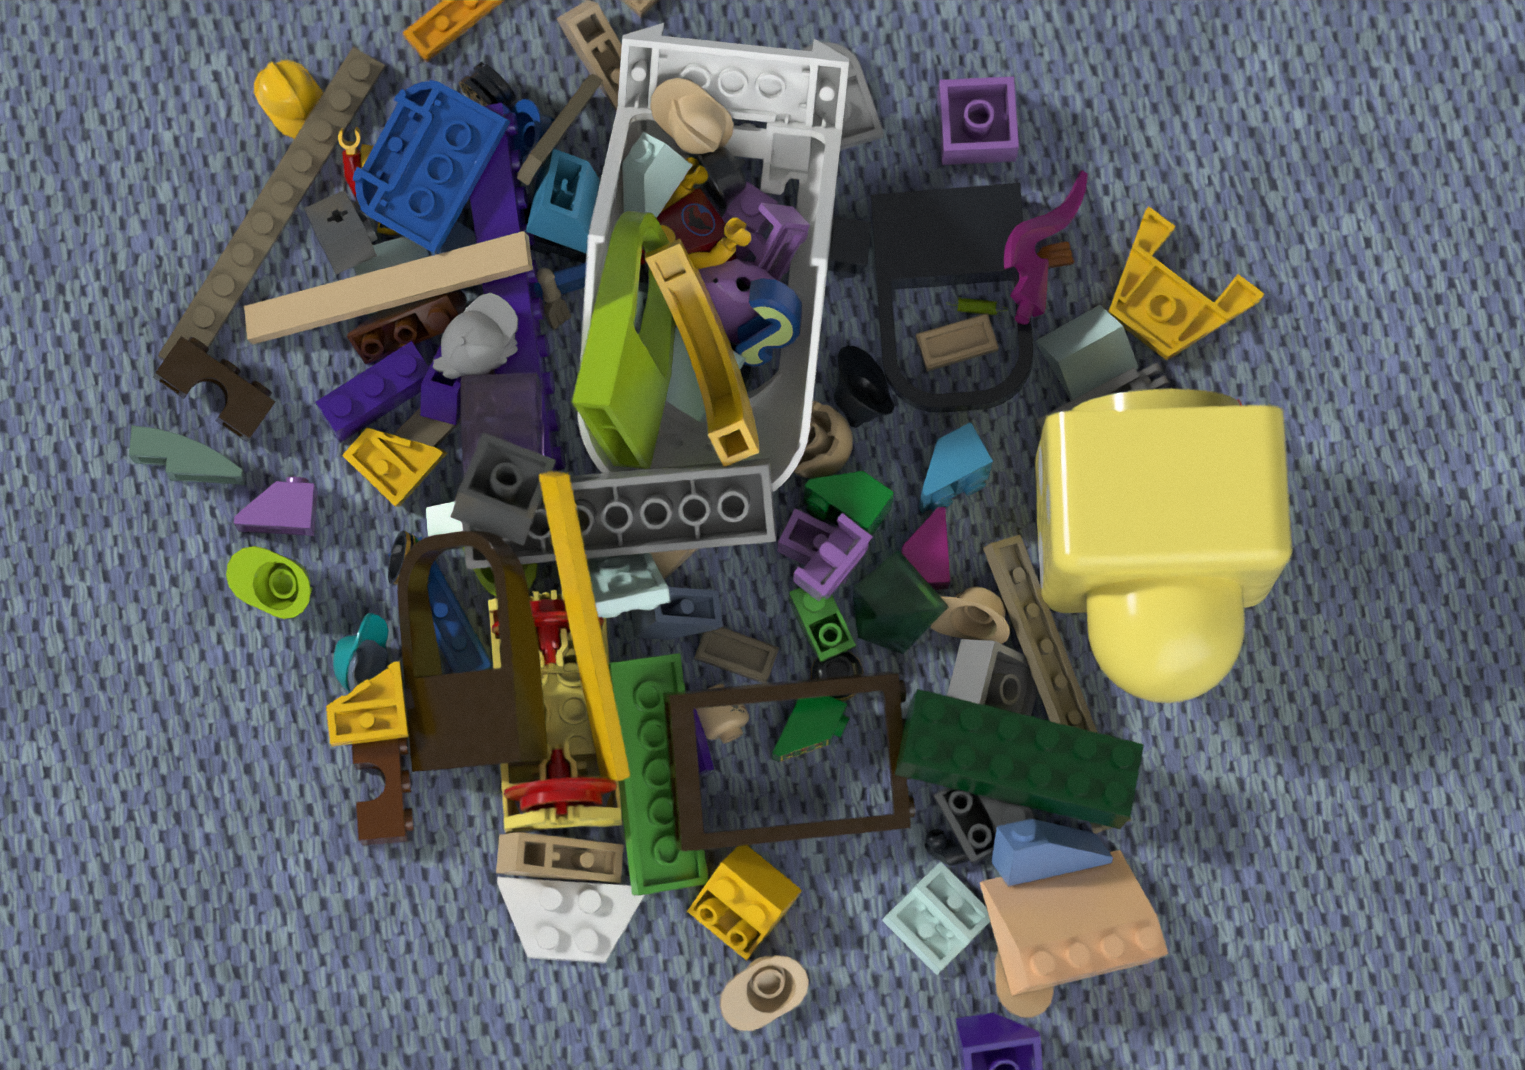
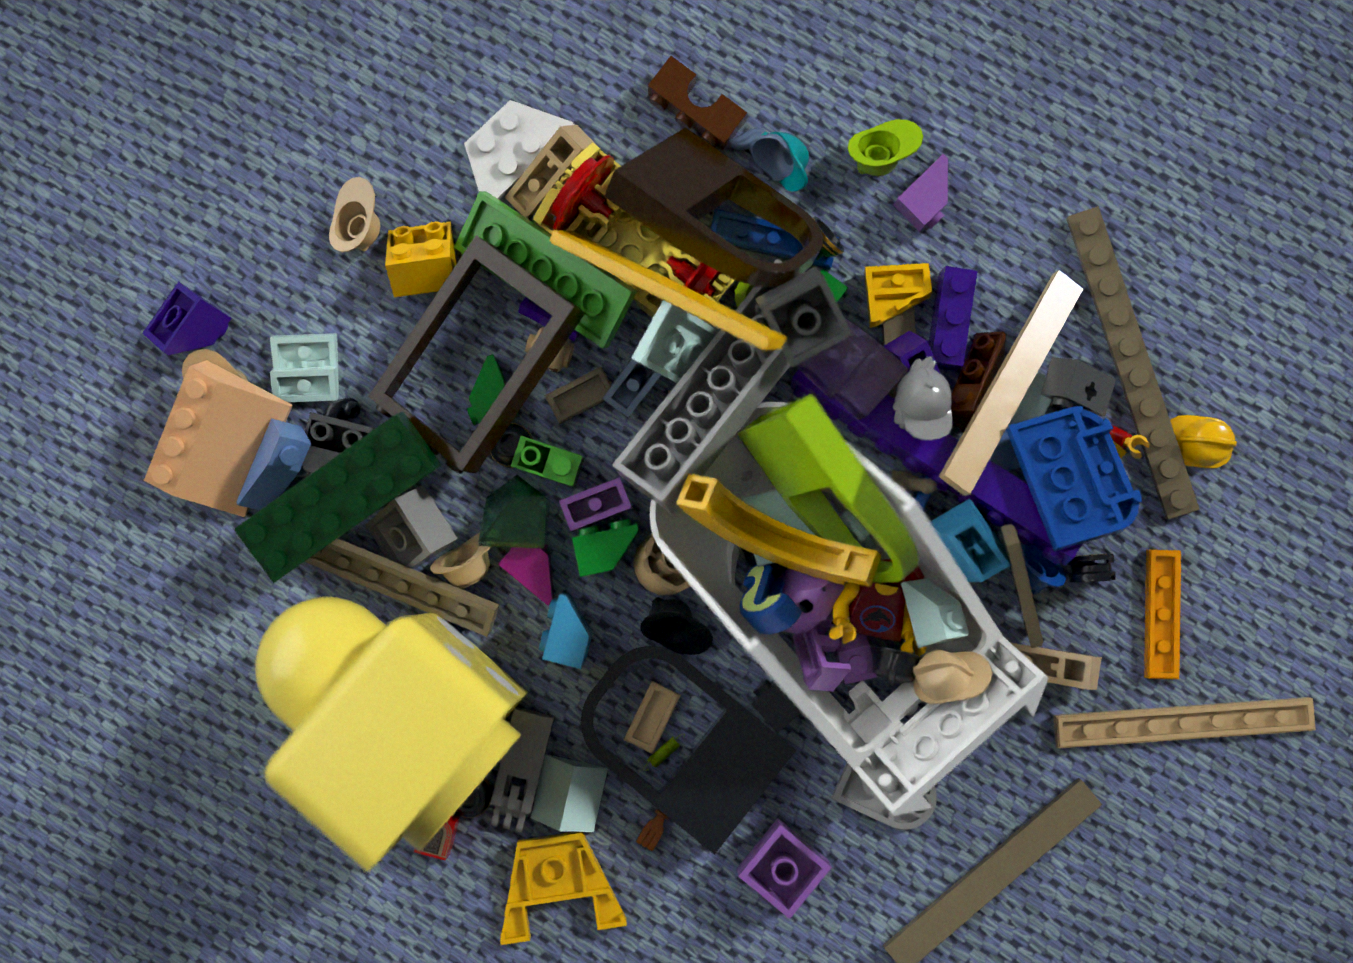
camera: 135 degrees right, 10 degrees up
(183, 457) = (1017, 164): sand green slope -> none
(244, 402) = (1073, 215): dark brown arch -> none
(370, 711) = (743, 128): yellow wing -> none
(833, 559) = (570, 495): medium lavender window -> none
(1020, 252) = (664, 809): magenta piece -> none

